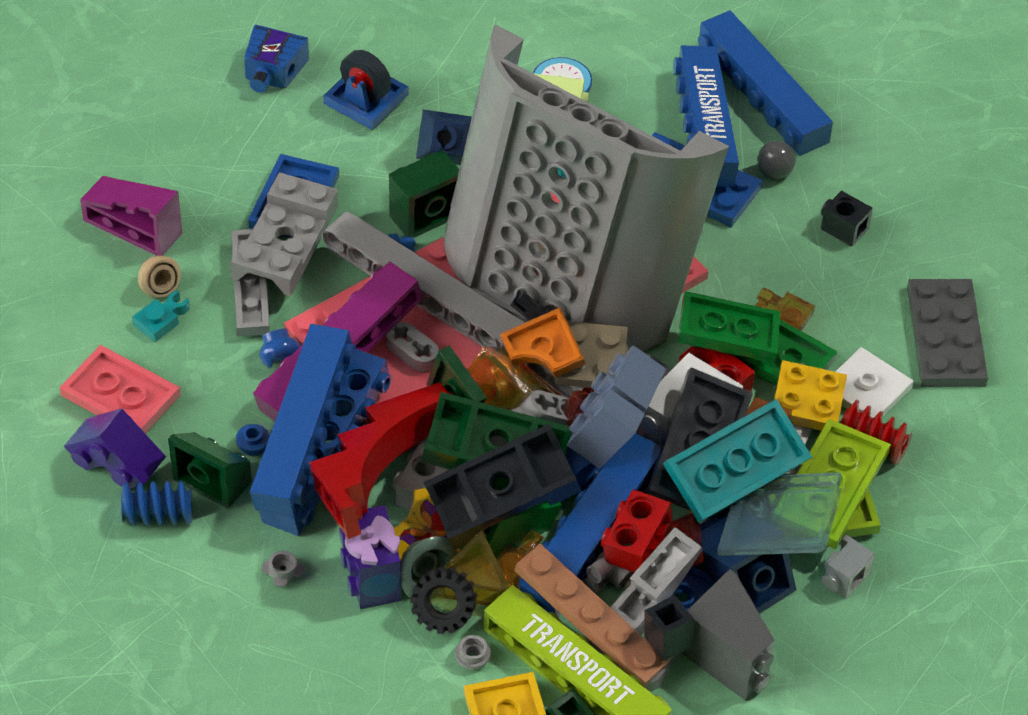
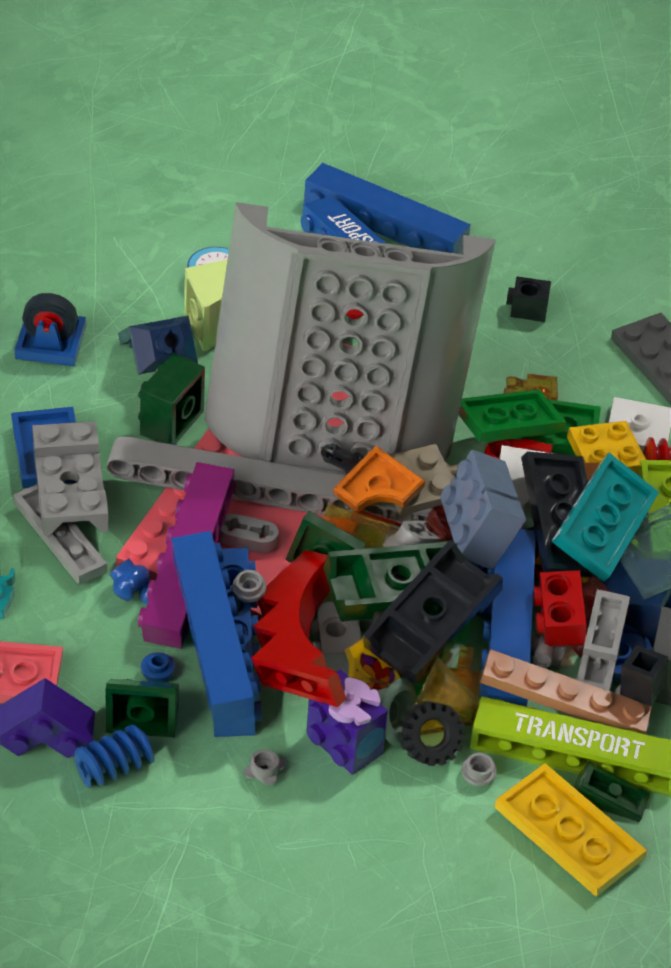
camera: 30 degrees left, 5 degrees down
(357, 389) = (246, 579): none -> light grey plate

